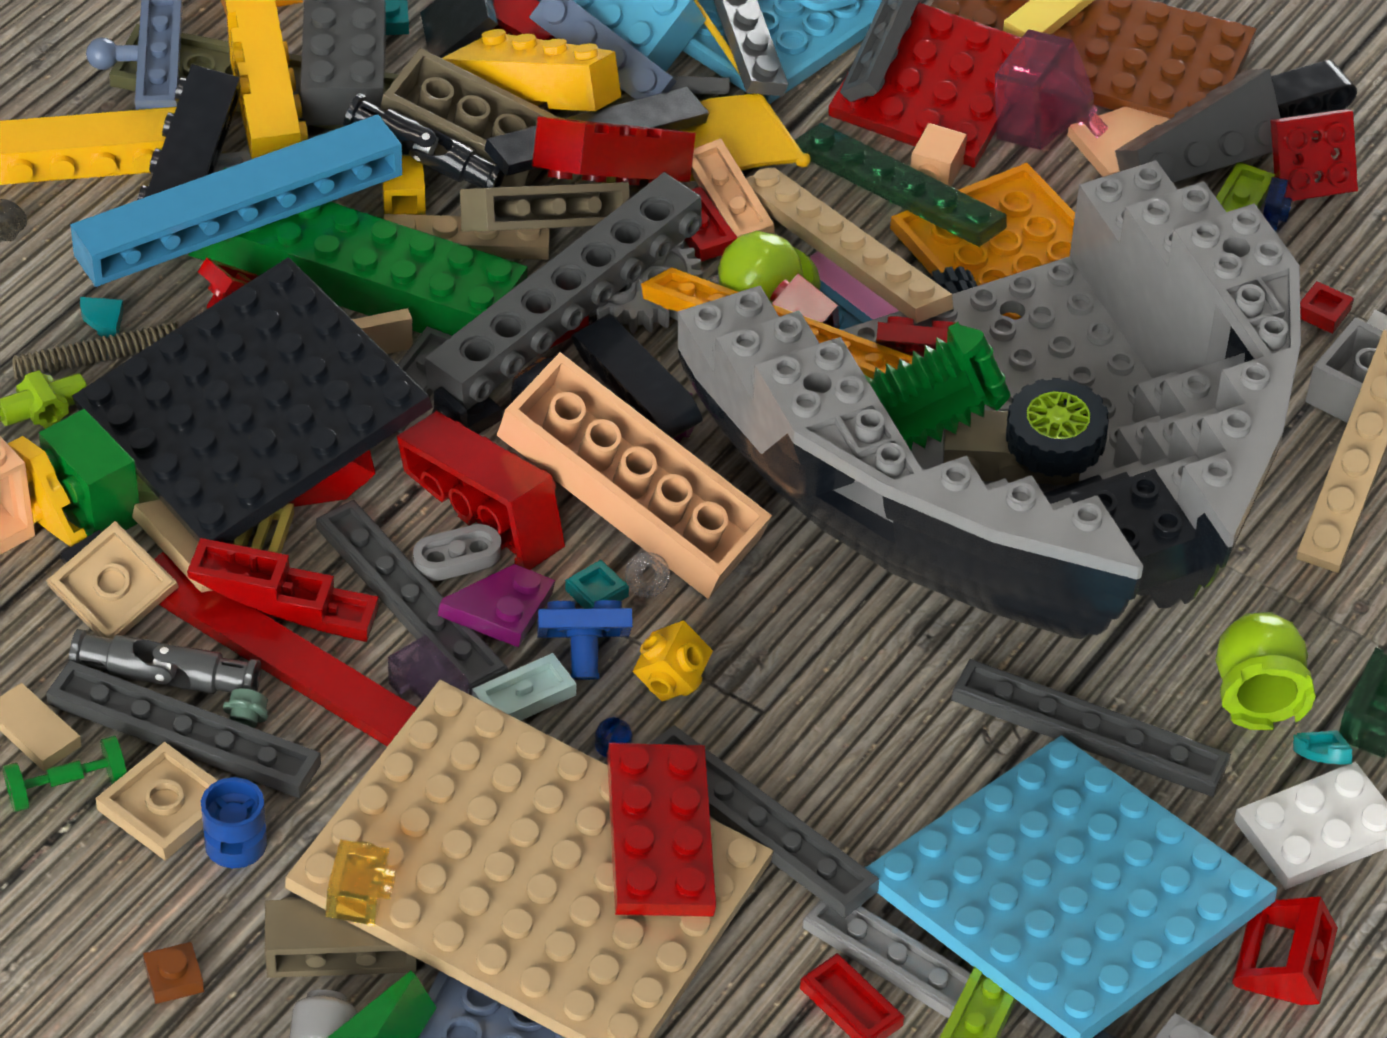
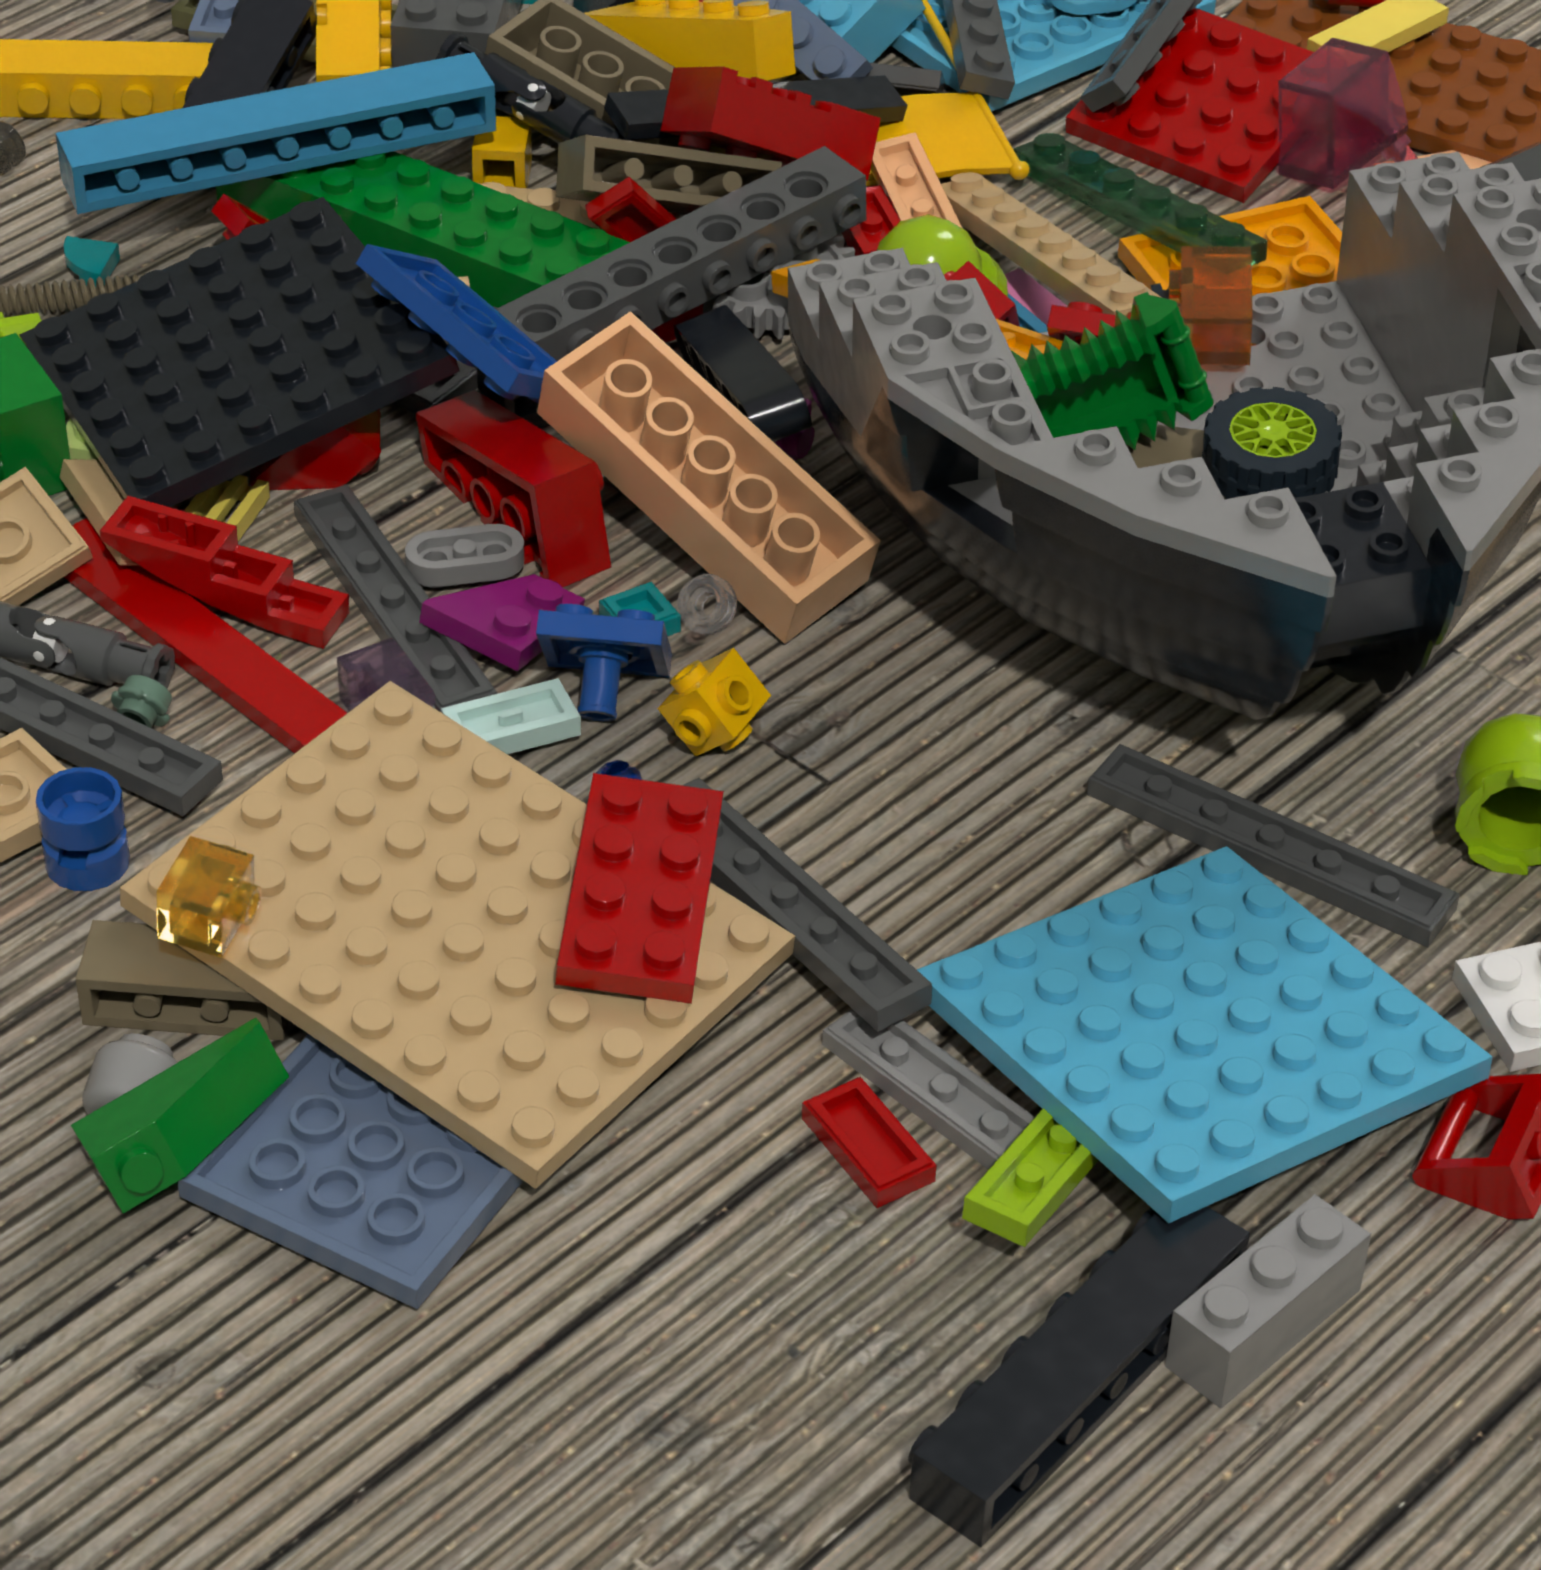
camera: 10 degrees right, 5 degrees down
(431, 366) = (461, 317): none -> blue plate
(526, 245) = (627, 211): none -> red tile
(939, 153) = (1198, 174): light nougat brick -> none
(987, 293) = (1216, 302): none -> clear orange brick

